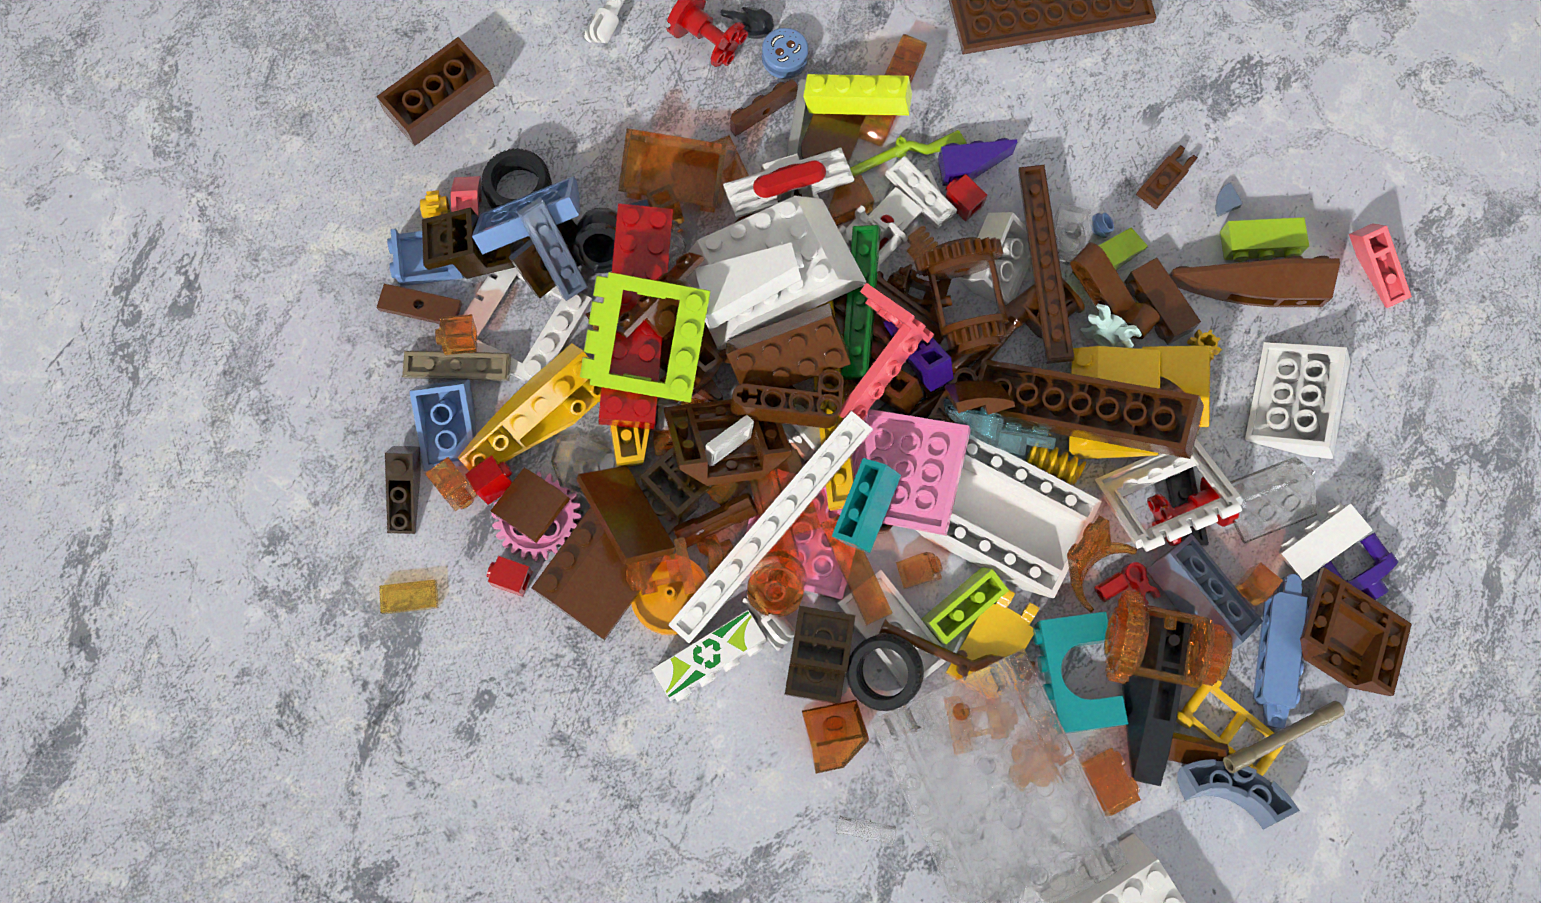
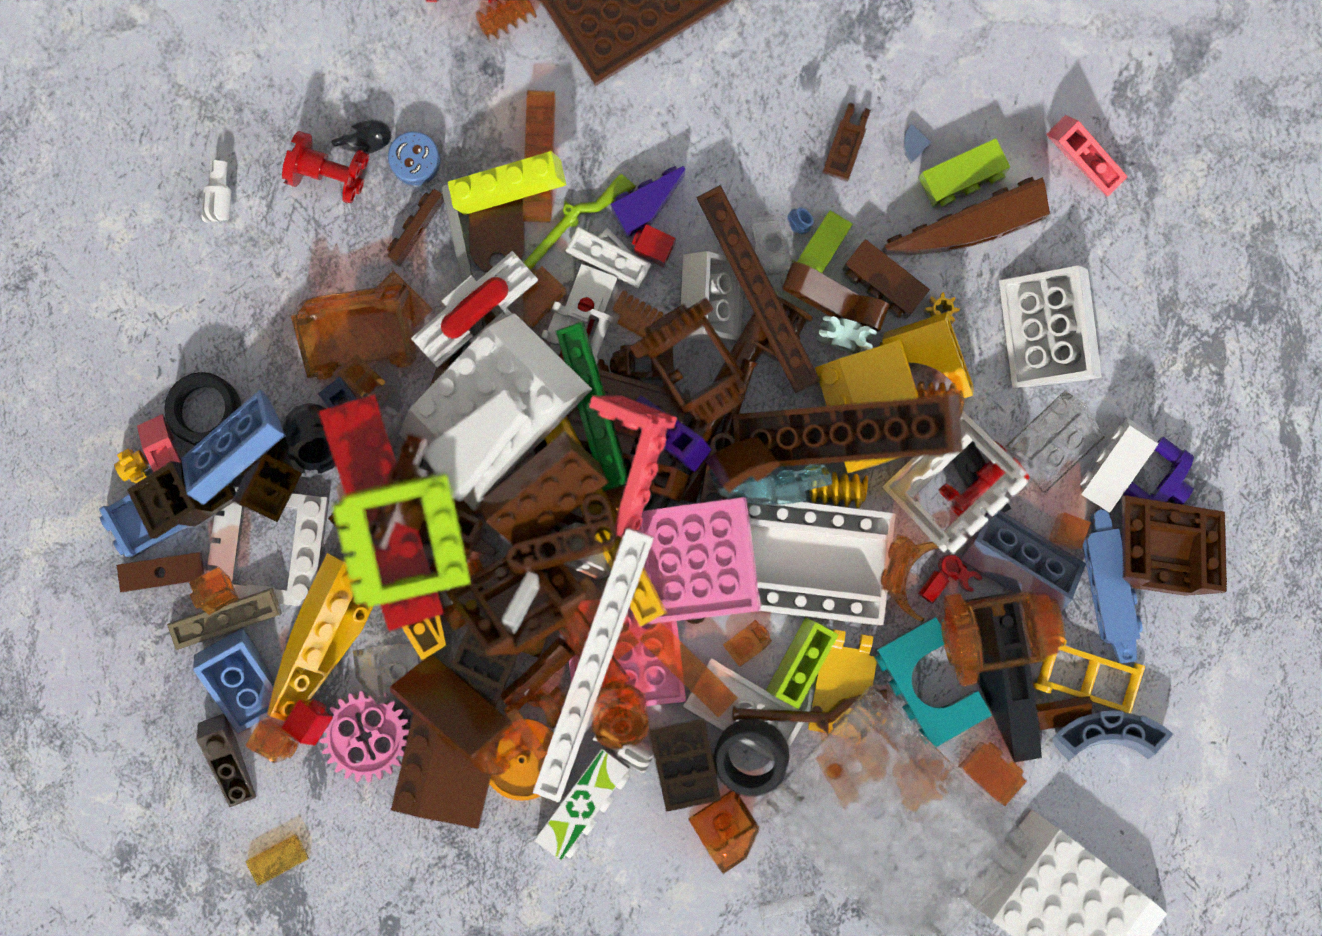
camera: 20 degrees left, 10 degrees up
(436, 91) = (78, 343): reddish brown brick -> none
(509, 576) = (363, 803): red brick -> none
(530, 505) = (356, 732): reddish brown slope -> none
(552, 249) = (271, 475): sand blue tile -> none
(866, 505) = (675, 613): teal brick -> none
(1248, 755) = (1111, 701): dark tan piece -> none

